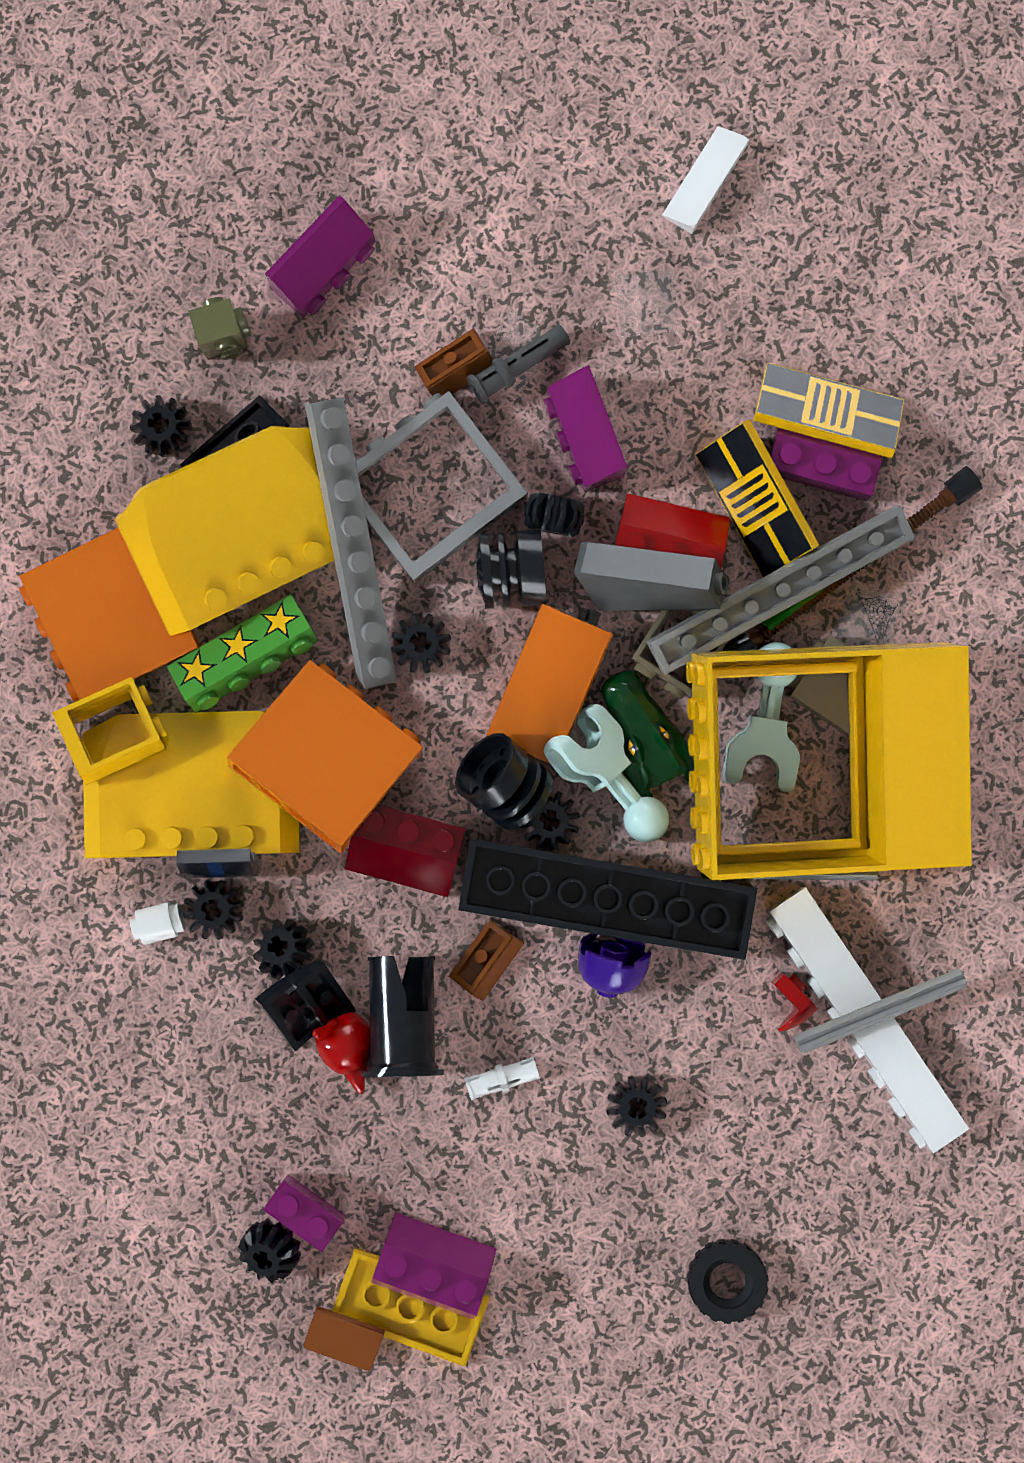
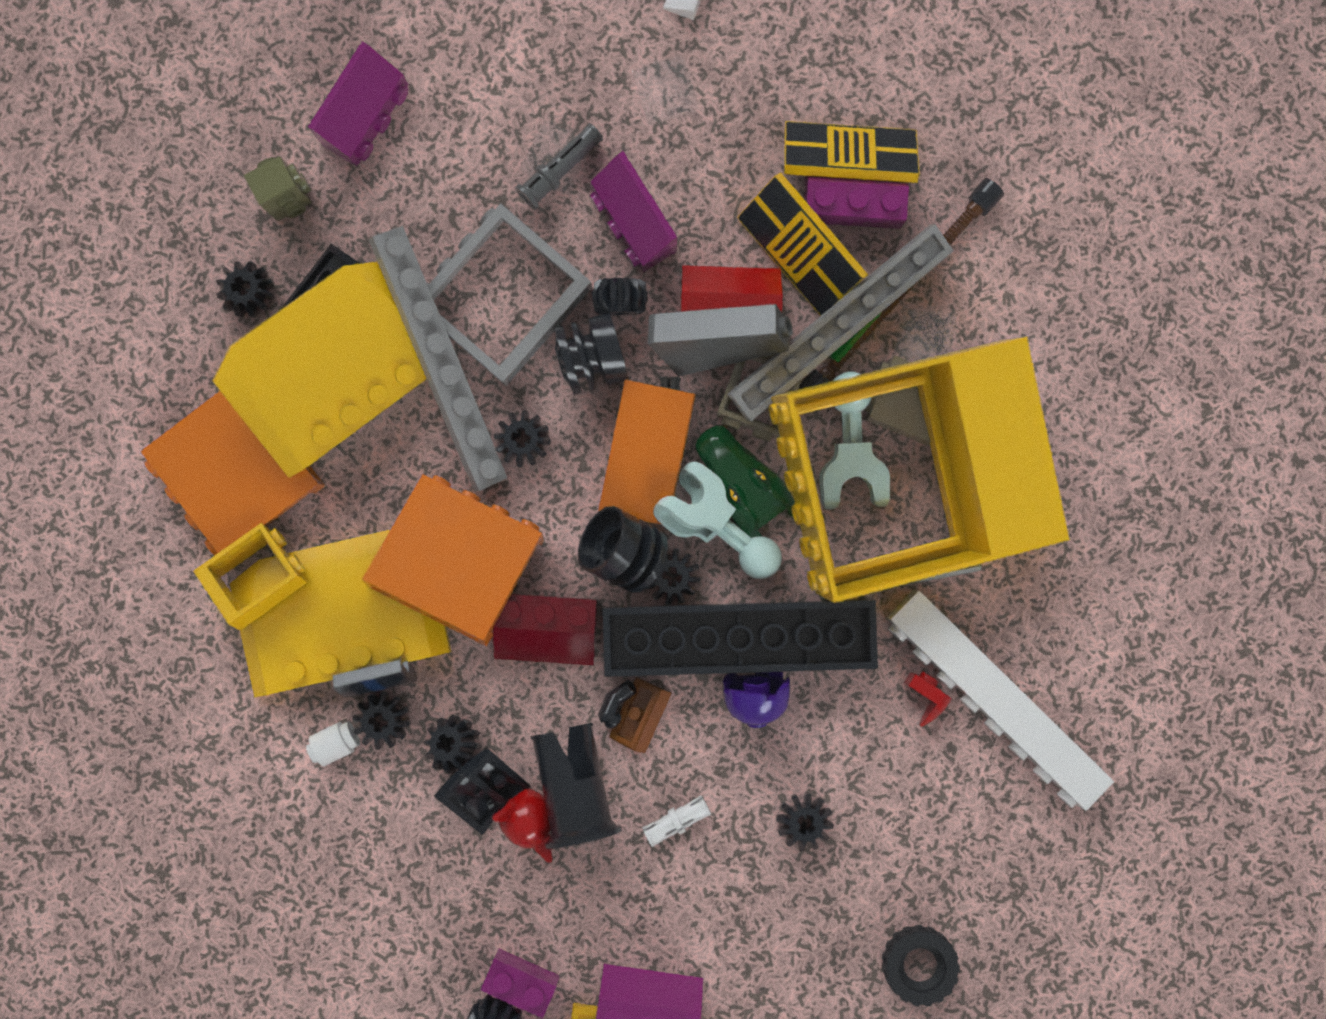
camera: 10 degrees left, 0 degrees up
(243, 654) = (360, 481): bright green brick -> none
(452, 364) = (499, 180): dark orange slope -> none
(459, 939) = (611, 702): none -> black arm
(880, 1011) = (1011, 690): light grey axle -> none

